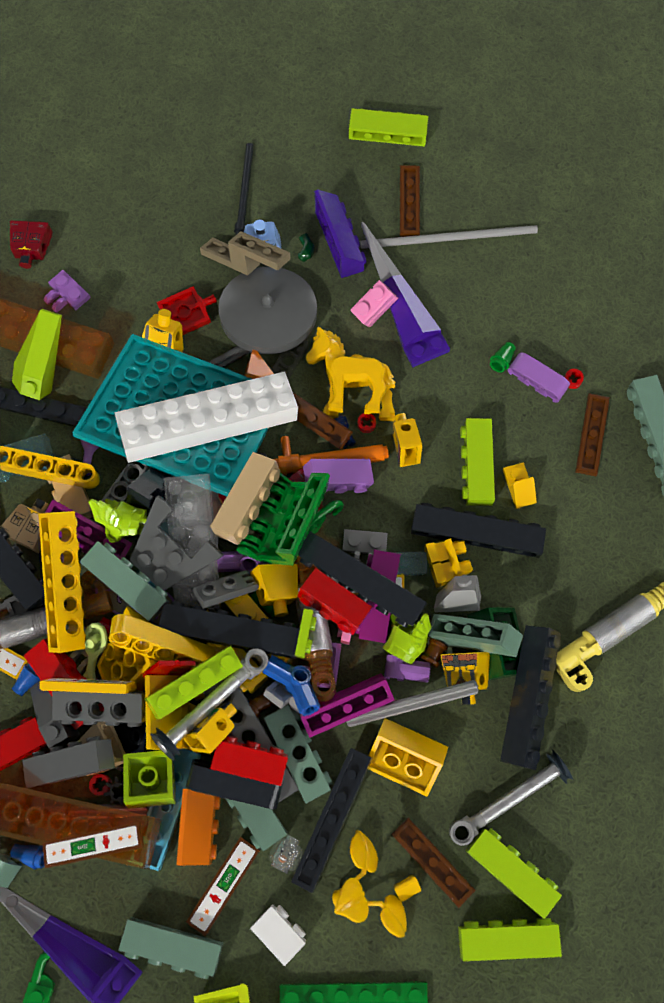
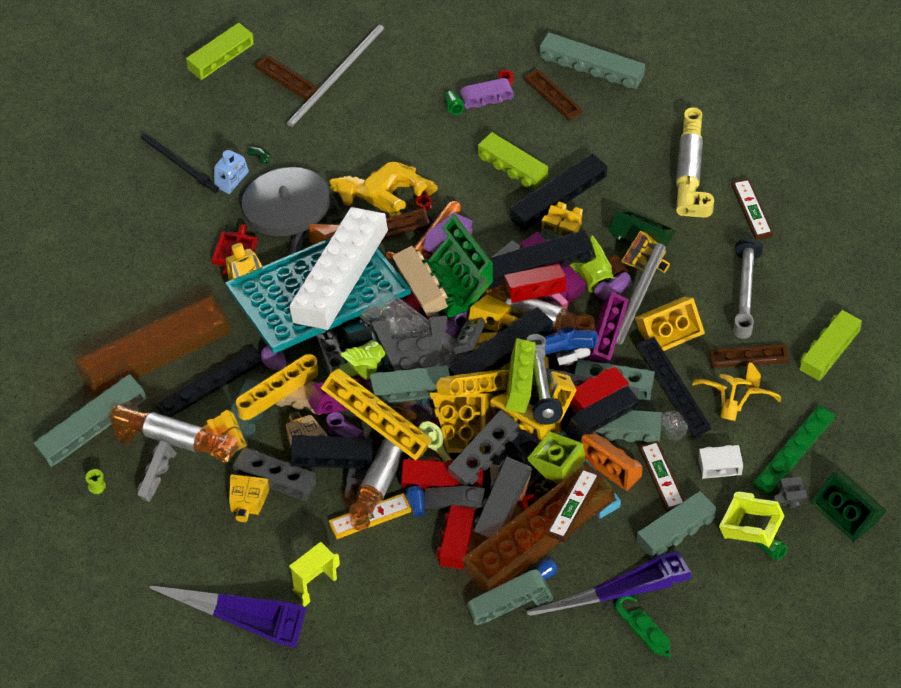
camera: 50 degrees left, 20 degrees down
(29, 241) = (78, 305): dark red torso -> none
(37, 358) = (186, 348): lime wedge -> none
(68, 289) = (143, 307): medium lavender hinge -> none
(88, 685) = (442, 468): yellow tile -> none
(170, 668) = (498, 384): red piece -> none
(245, 253) = (235, 182): dark tan bracket -> none
(304, 643) = (537, 300): lime plate -> none
(339, 234) = (271, 128): dark purple slope -> none
(374, 304) = (346, 139): bright pink brick -> none
(407, 440) = (461, 186): yellow torso -> none
(415, 326) = (382, 133): dark purple plate -> none
(459, 595) = (593, 221): light grey slope -> none
(476, 634) = (628, 224): sand green brick -> none
(513, 873) = (791, 316): lime brick -> none
(520, 485) = (552, 152): yellow slope -> none
(530, 697) = (692, 232): black brick -> none
(617, 728) = (752, 209): none -> tile

